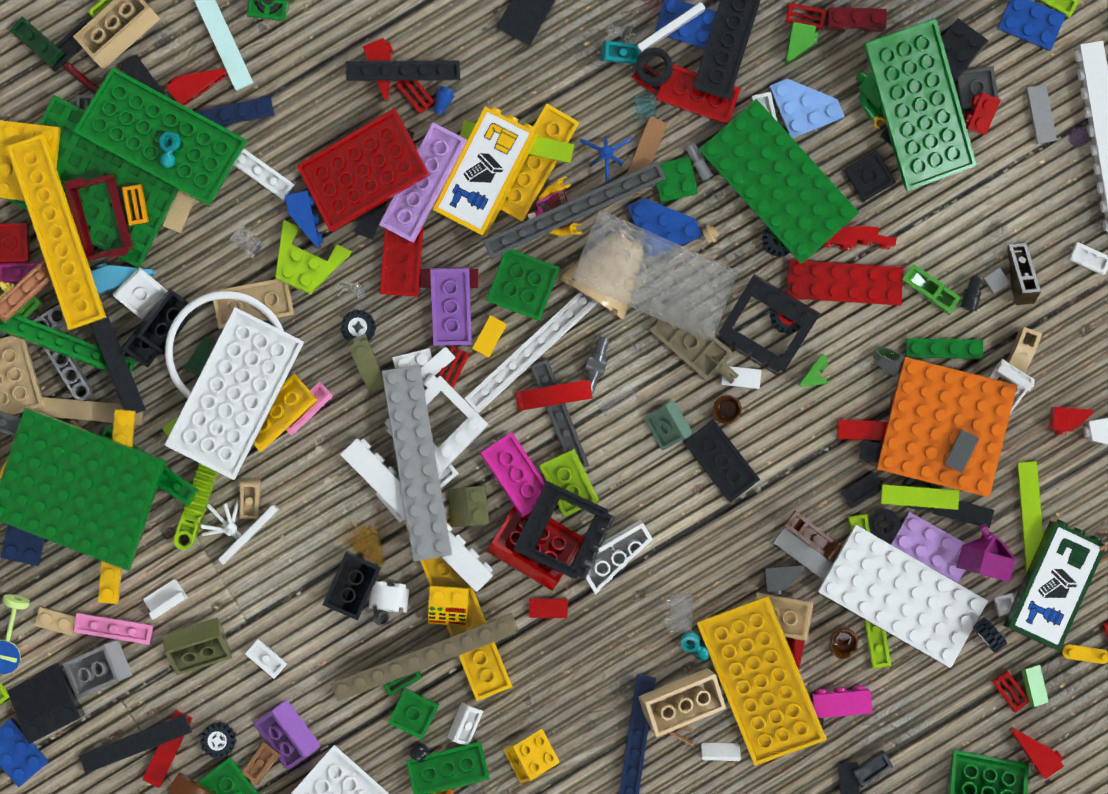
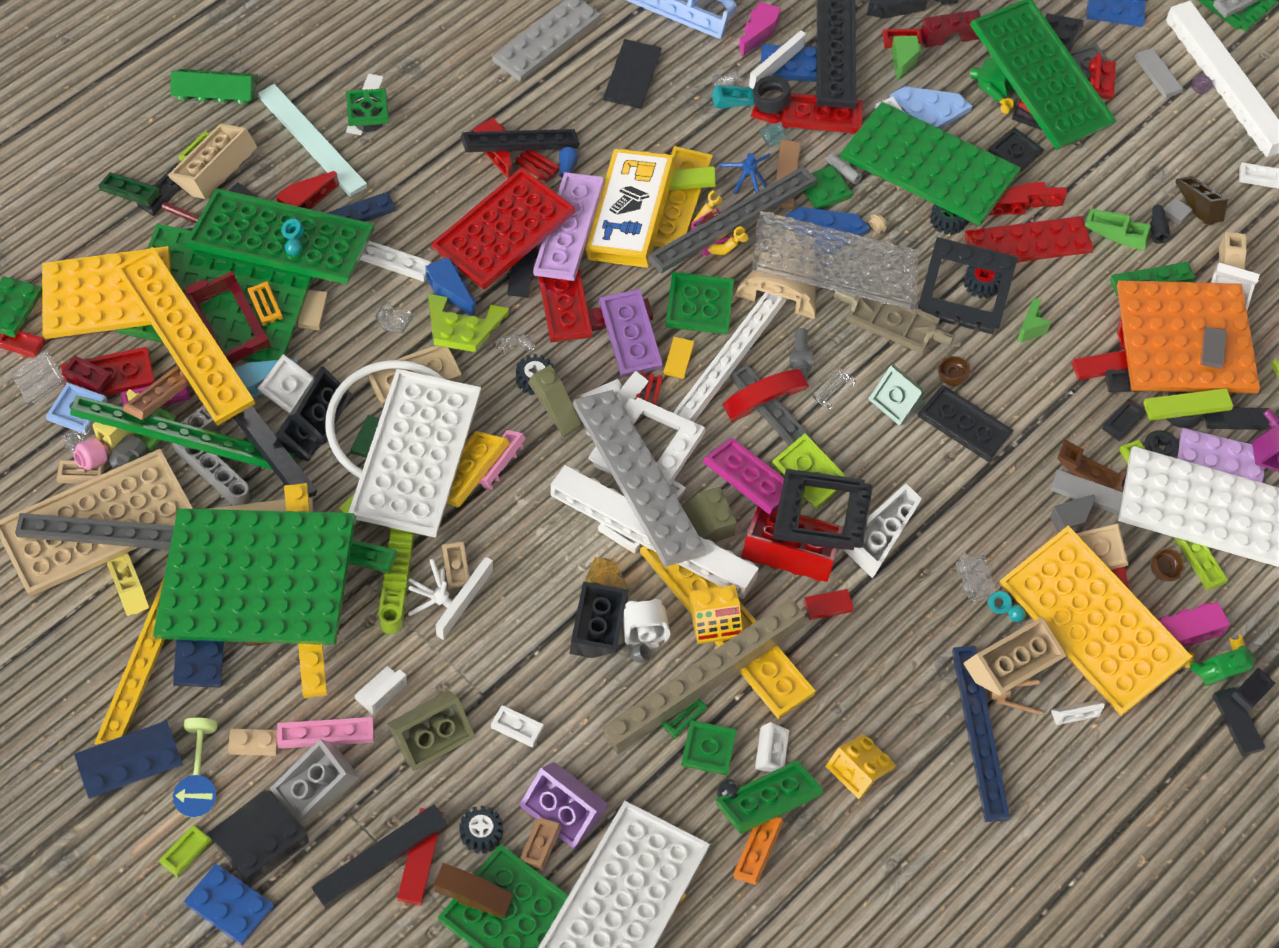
camera: 15 degrees left, 30 degrees down
(747, 378) = (962, 343): white tile -> none
(855, 747) = (1224, 665): none -> green torso
(888, 360) = (1101, 296): dark grey rock -> none

